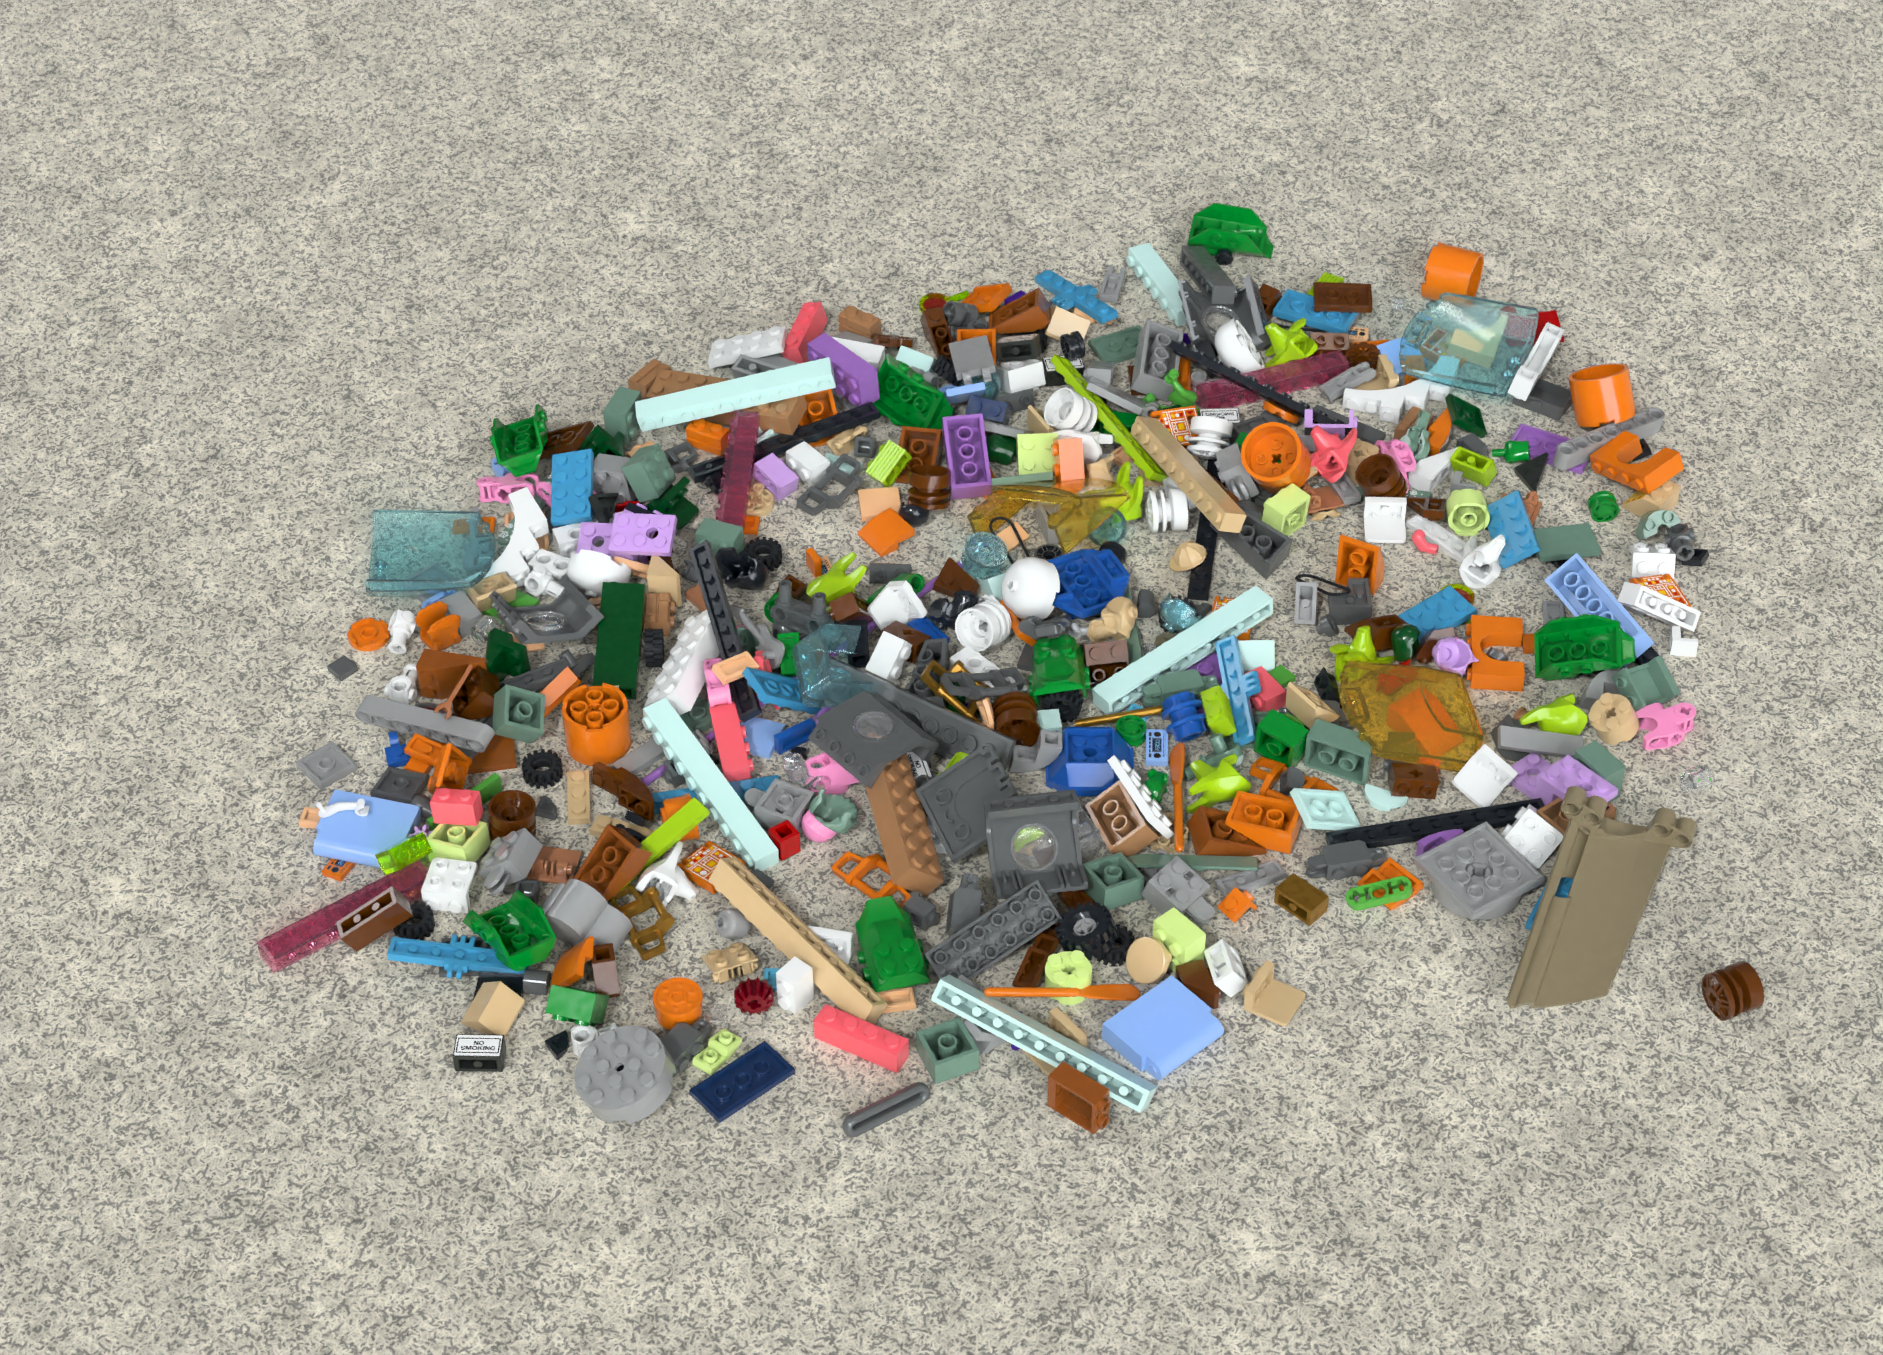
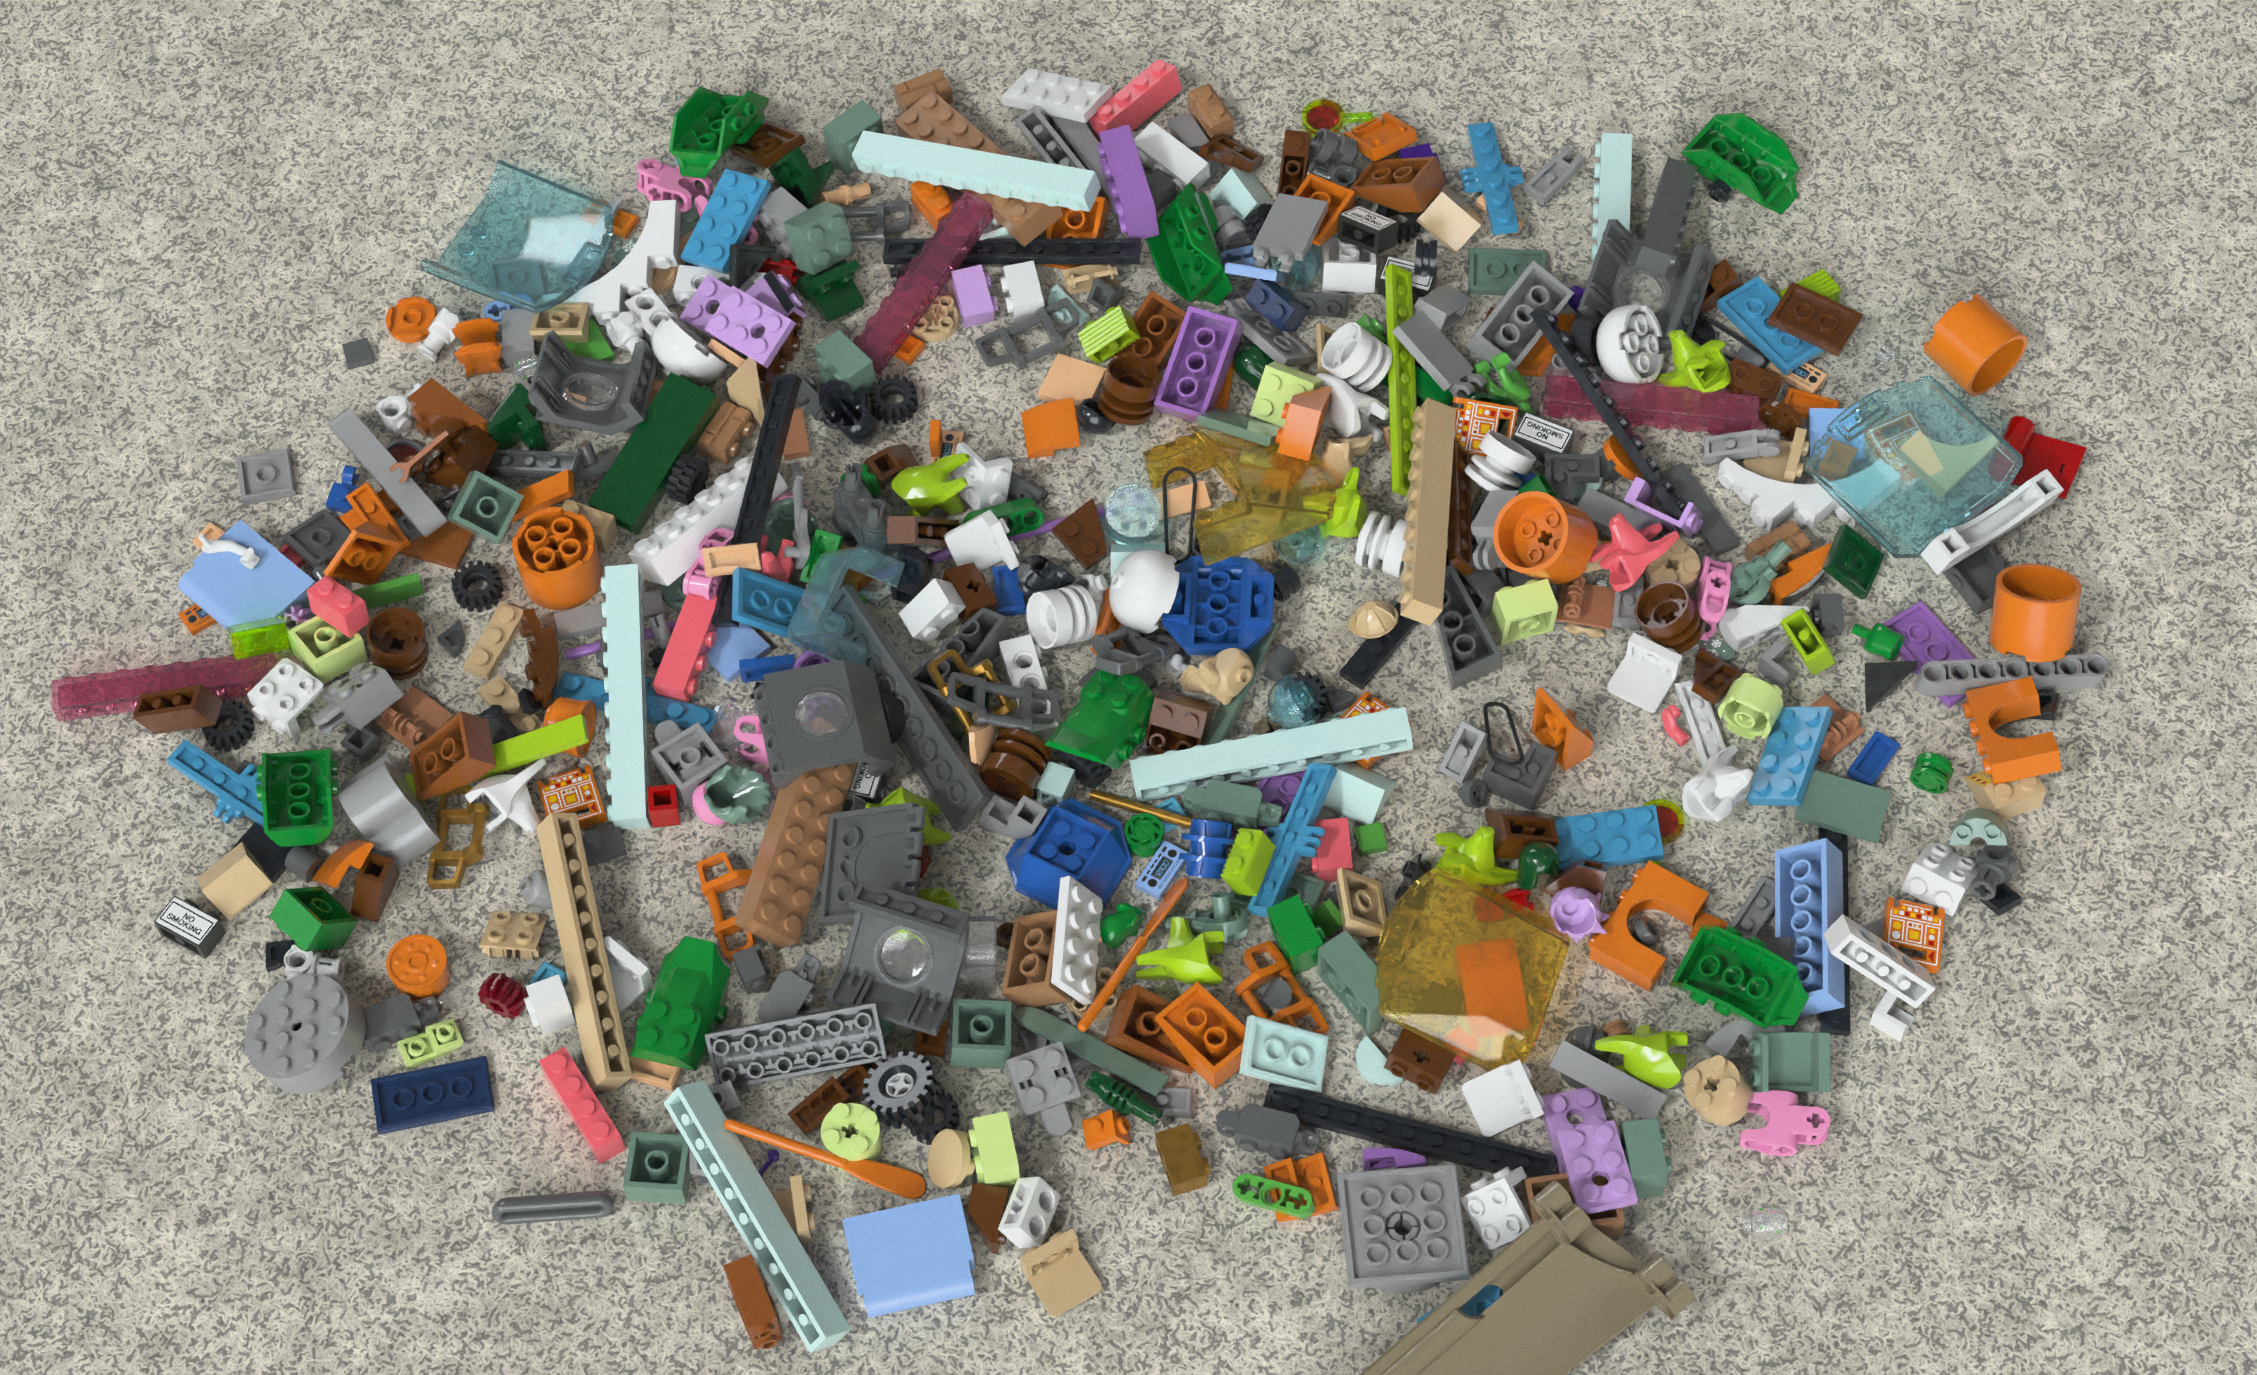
camera: 30 degrees right, 15 degrees up
(876, 572) = (986, 481): none -> white bracket
(1236, 878) = (1122, 1098): none -> dark green hinge
(1559, 513) = (1873, 759): none -> blue tile

